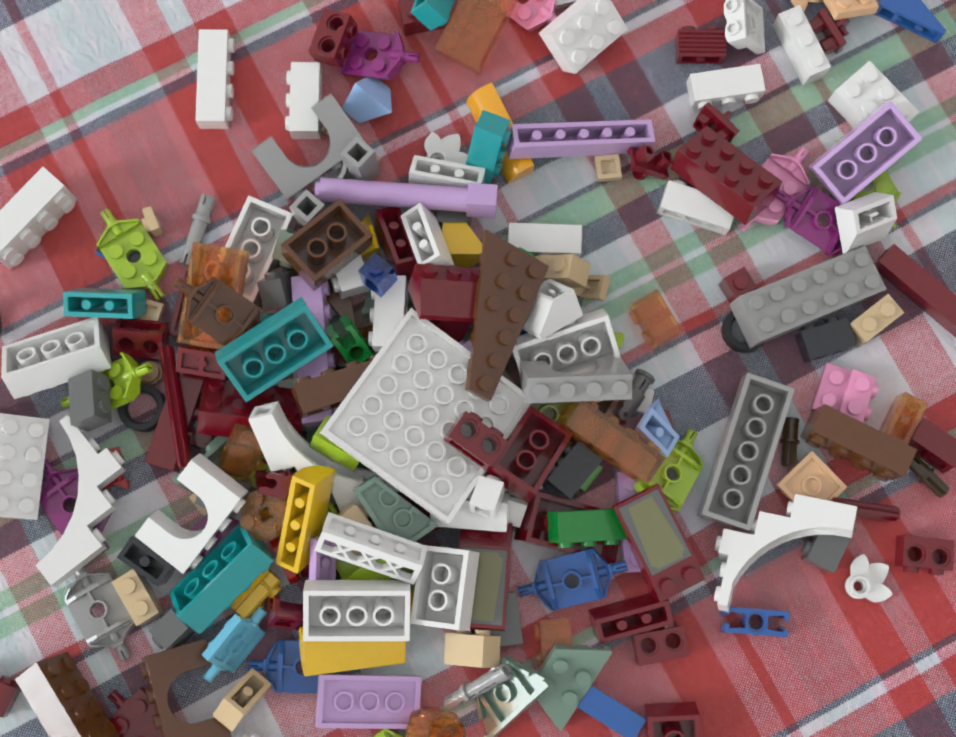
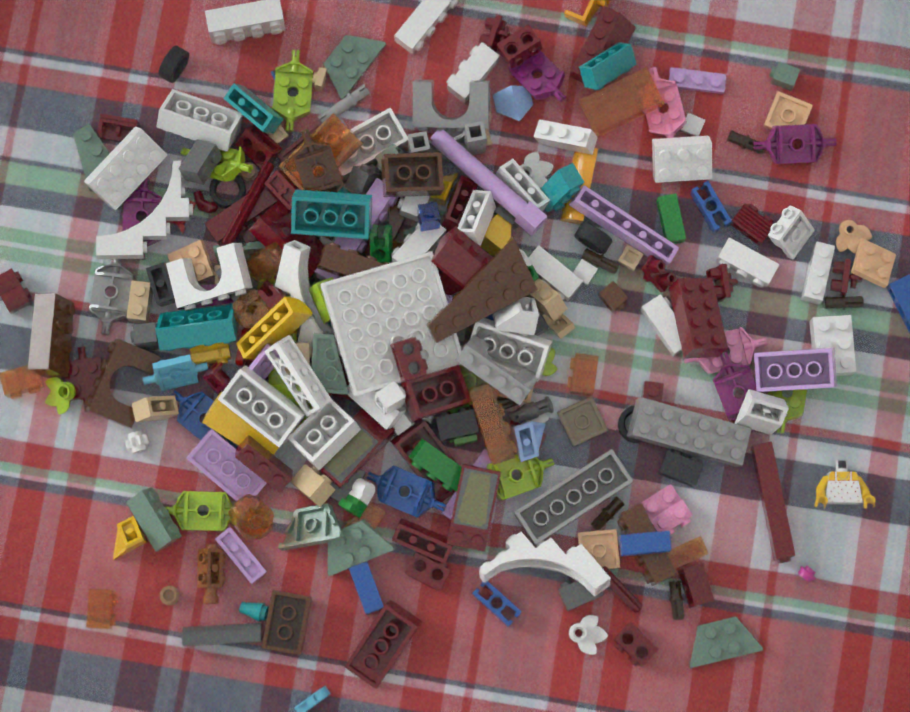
camera: 40 degrees right, 0 degrees up
(129, 442) = (204, 205): none -> dark red arm
(168, 502) = (200, 259): none -> light nougat plate
(171, 181) = (351, 61): none -> sand green wing
(300, 43) = (497, 34): none -> dark red hips
(403, 667) = (264, 463): none -> dark red brick
(450, 94) = (565, 137): none -> white brick
(470, 691) = (291, 509): light grey pin -> none
(530, 625) = (358, 498): none -> leg
(557, 174) = (593, 238): none -> black tyre
(573, 214) = (585, 271): none -> white tile
(581, 193) = (600, 261): none -> dark brown axle
(616, 98) = (671, 218): none -> green piece
(623, 219) = (613, 297): none -> reddish brown brick
(655, 53) = (712, 199): none -> blue piece
(690, 368) = (582, 421): none -> dark tan tile
(848, 56) = (844, 302): none -> dark brown axle
(865, 443) = (645, 543): none -> blue piece
(875, 319) = (720, 480): tan brick -> none

